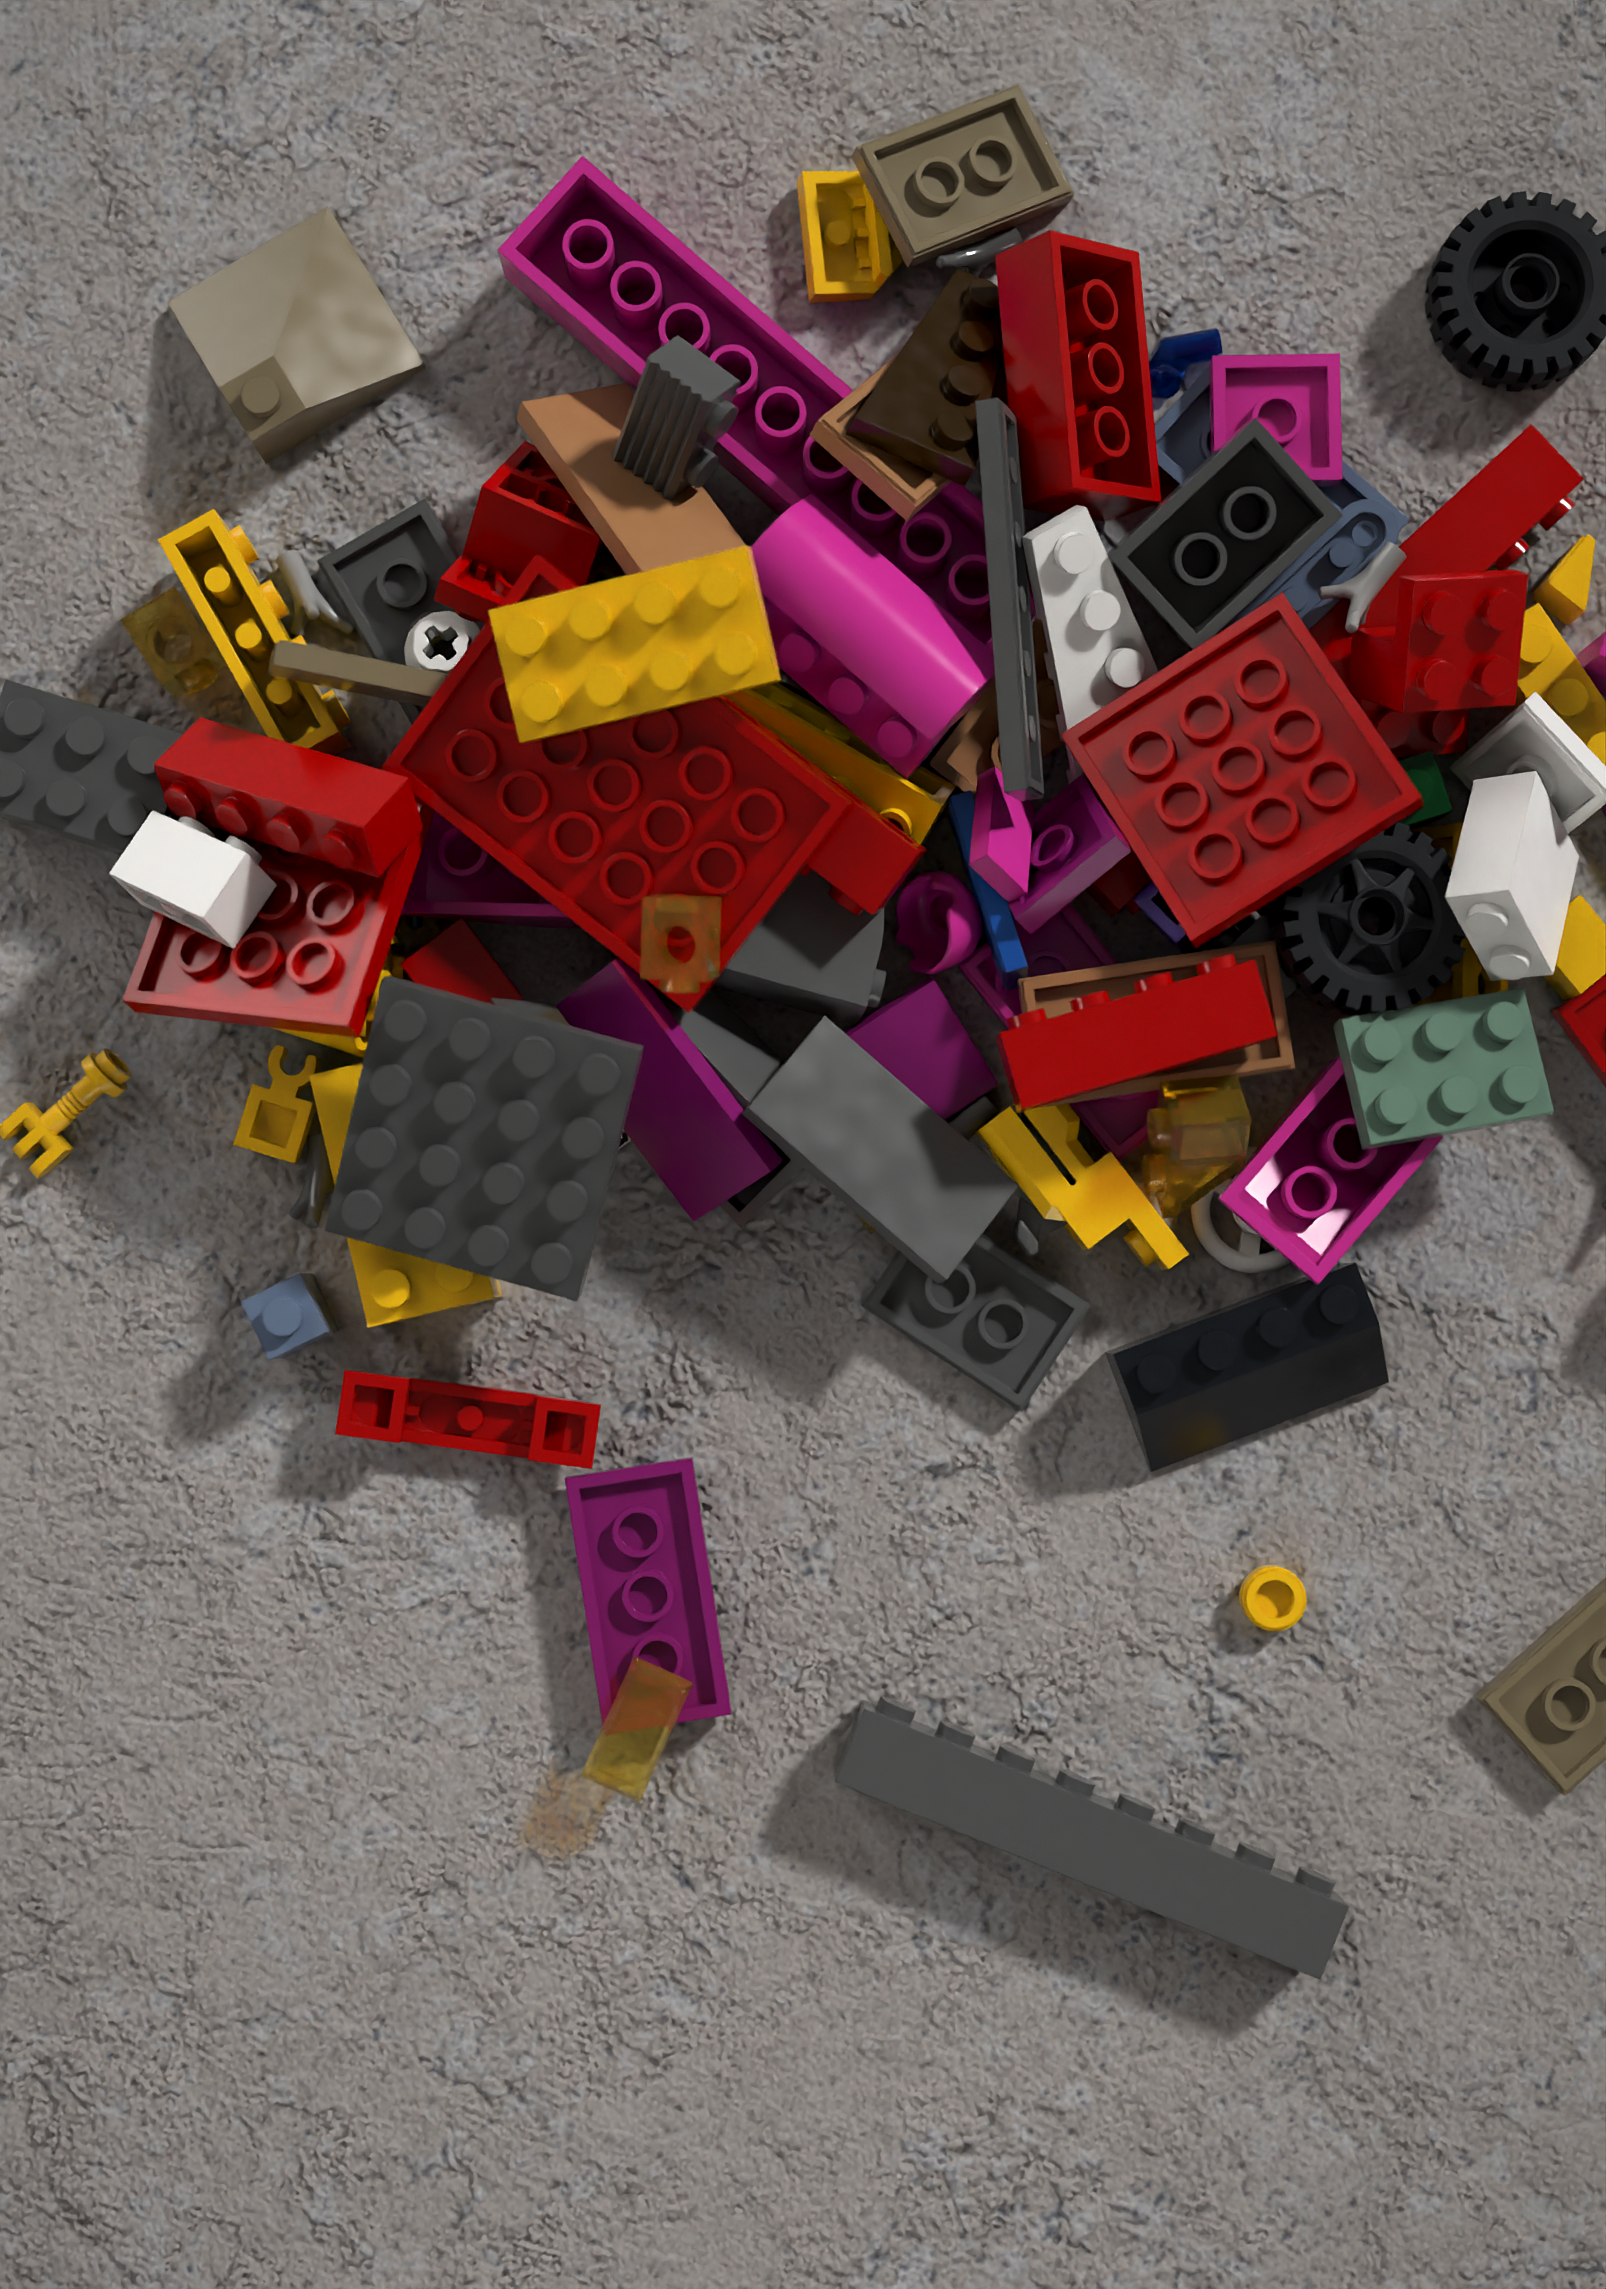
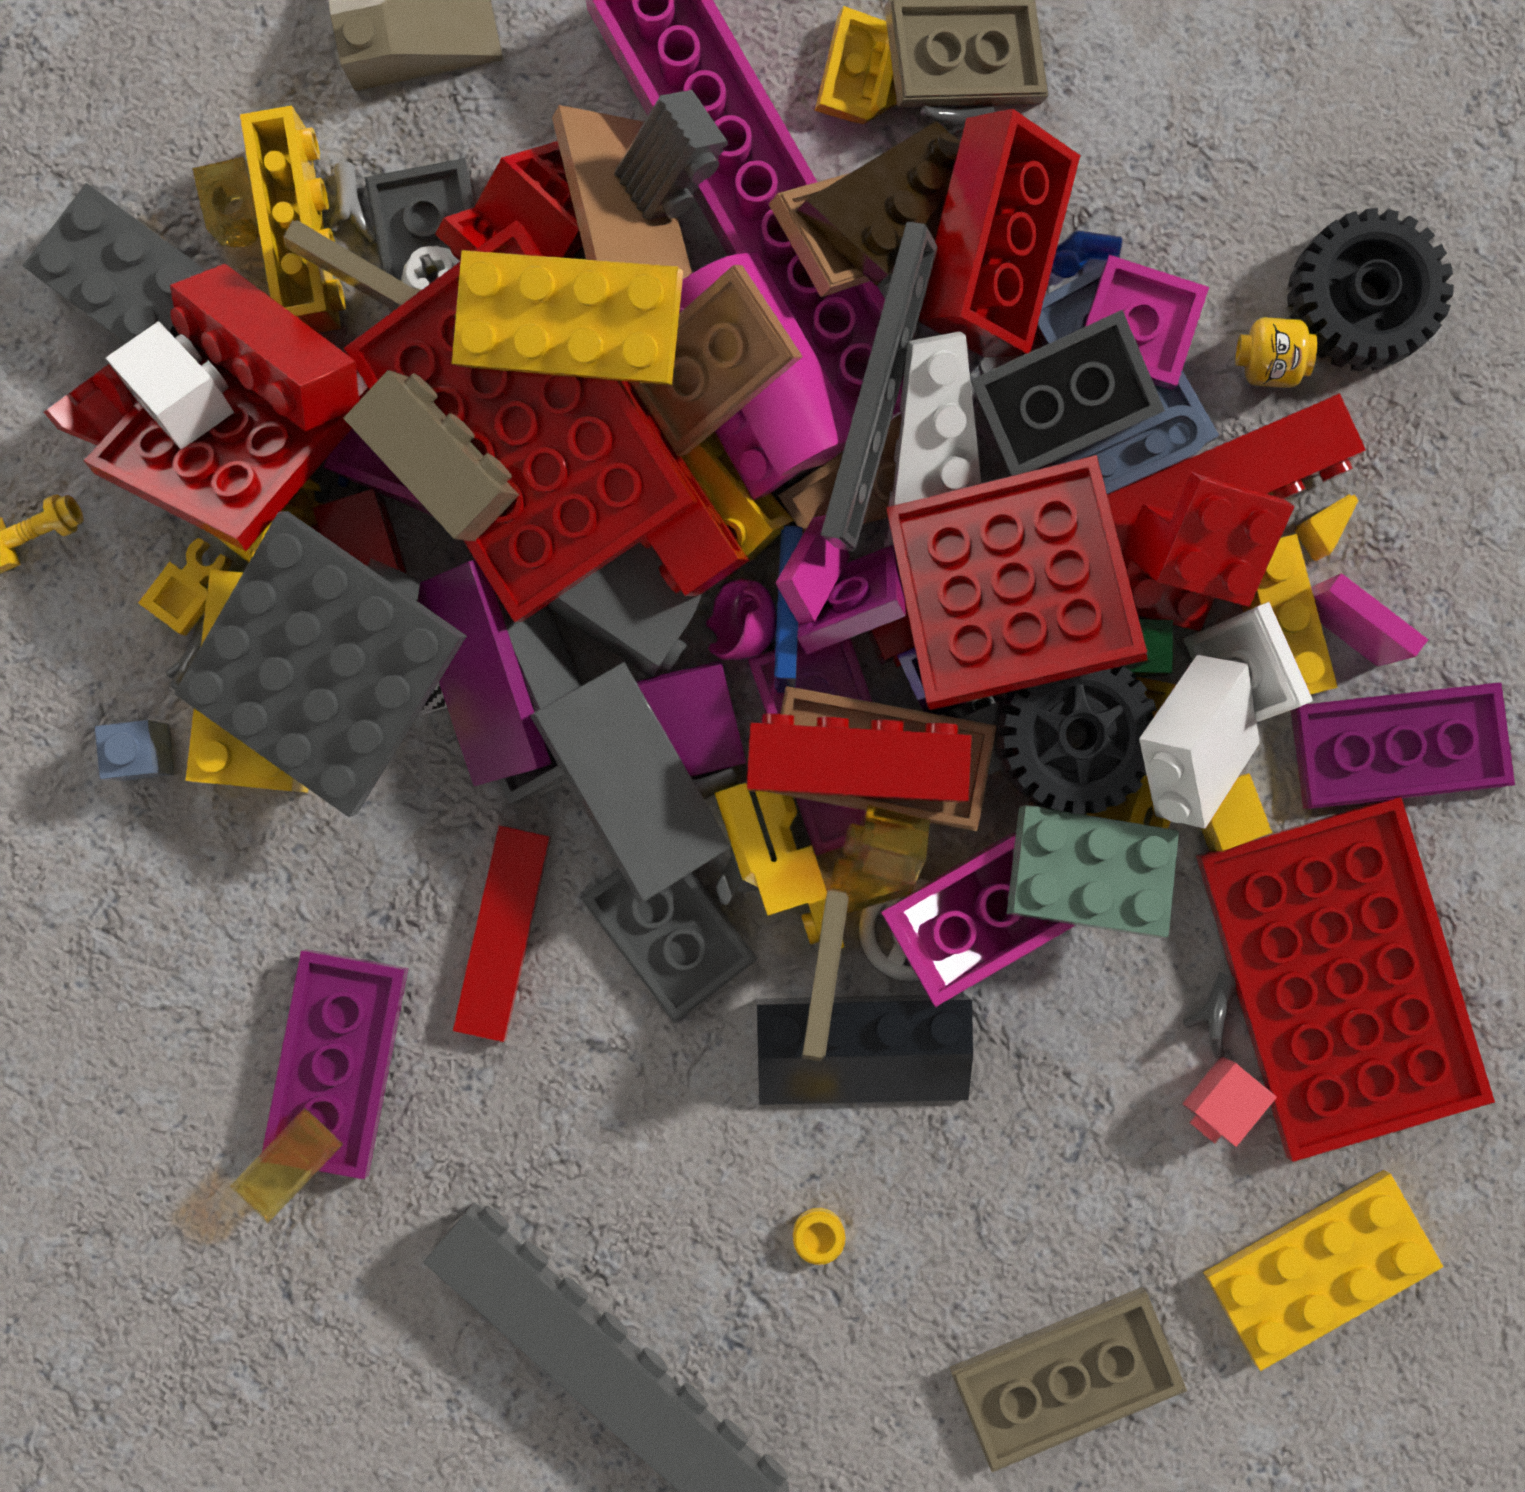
camera: 20 degrees right, 0 degrees up
(105, 932) = (93, 407): none -> red brick
(468, 1418) = (243, 876): red slope -> none
(533, 853) = (432, 454): none -> dark tan brick
(698, 915) = (544, 551): clear yellow brick -> none
(786, 1379) = (502, 933): none -> red tile
(827, 627) = (724, 358): none -> medium nougat tile
(1182, 1292) = (825, 976): none -> dark tan tile
(1365, 585) = (1165, 473): light grey bar -> none
(1442, 401) = (1277, 352): none -> yellow head

